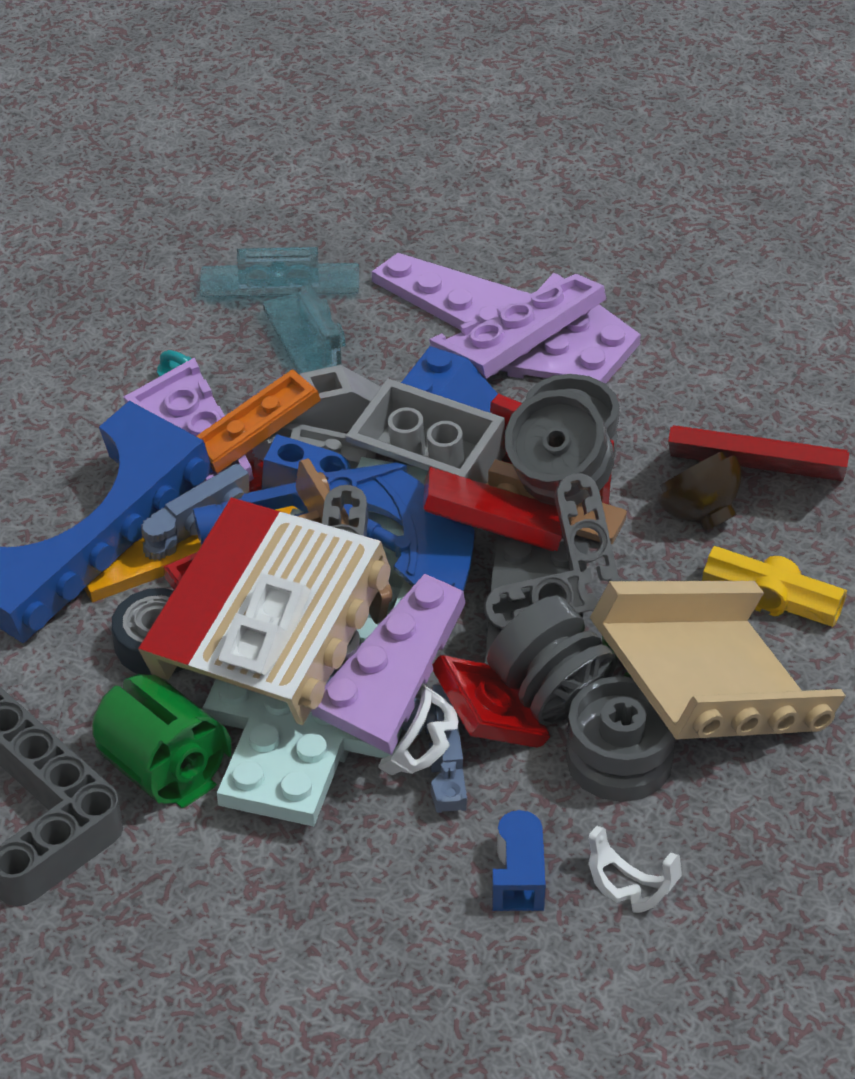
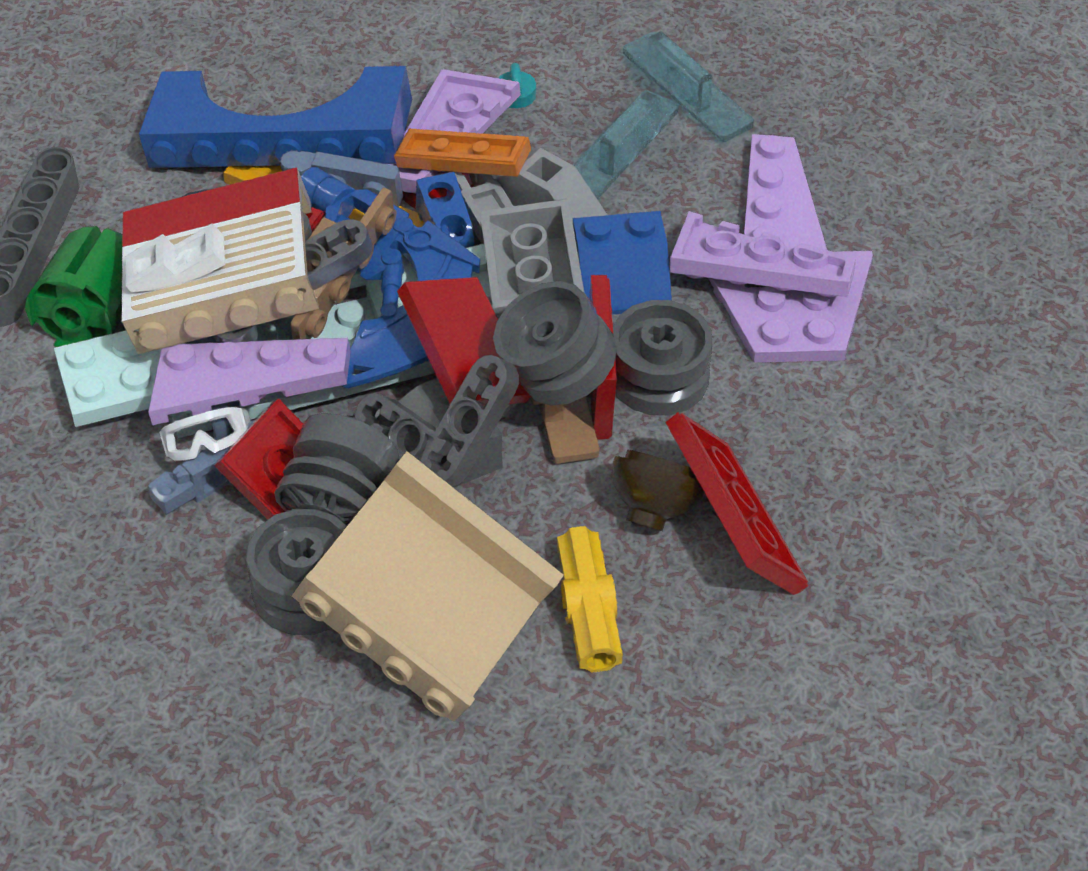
camera: 55 degrees right, 5 degrees up
(522, 852) = (128, 575): blue leg -> none
(603, 855) = (163, 666): white helmet -> none

